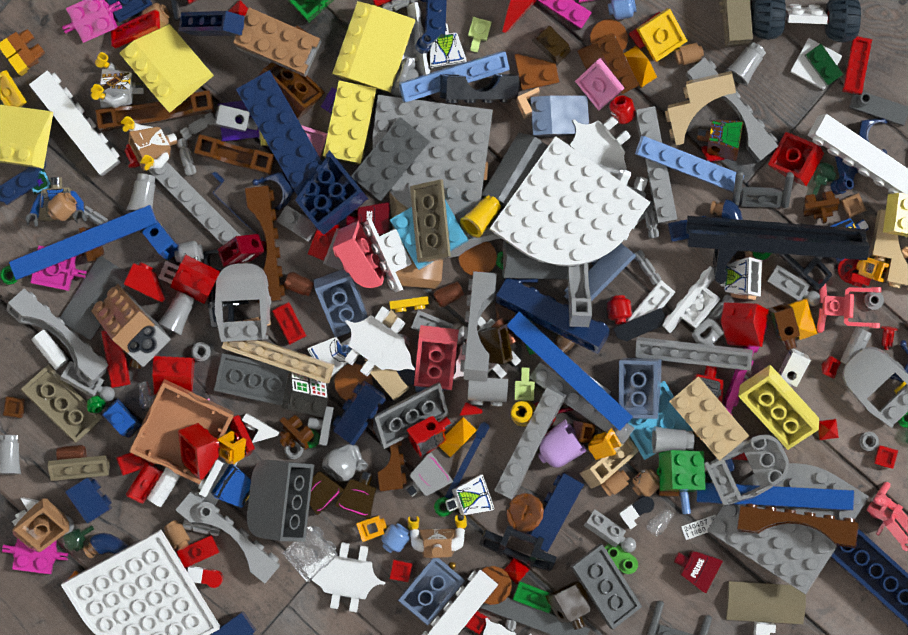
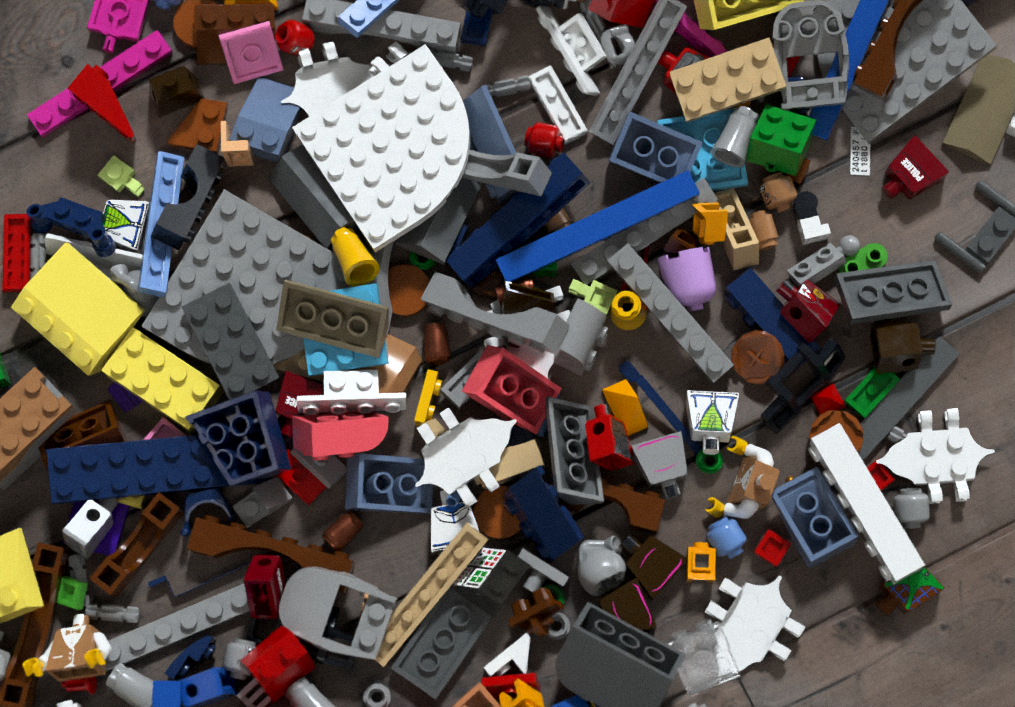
camera: 70 degrees left, 10 degrees down
(183, 224) = (198, 651): none -> dark blue slope
(187, 125) = (72, 592): none -> bright green tile
(289, 323) = (388, 564): red plate -> none
(470, 409) = (595, 375): red slope -> none
(570, 533) = (807, 308): none -> dark red torso
(640, 325) = (575, 123): black piece -> none
(659, 522) = (836, 198): clear cone -> none
(685, 503) = (821, 156): medium blue pin -> none

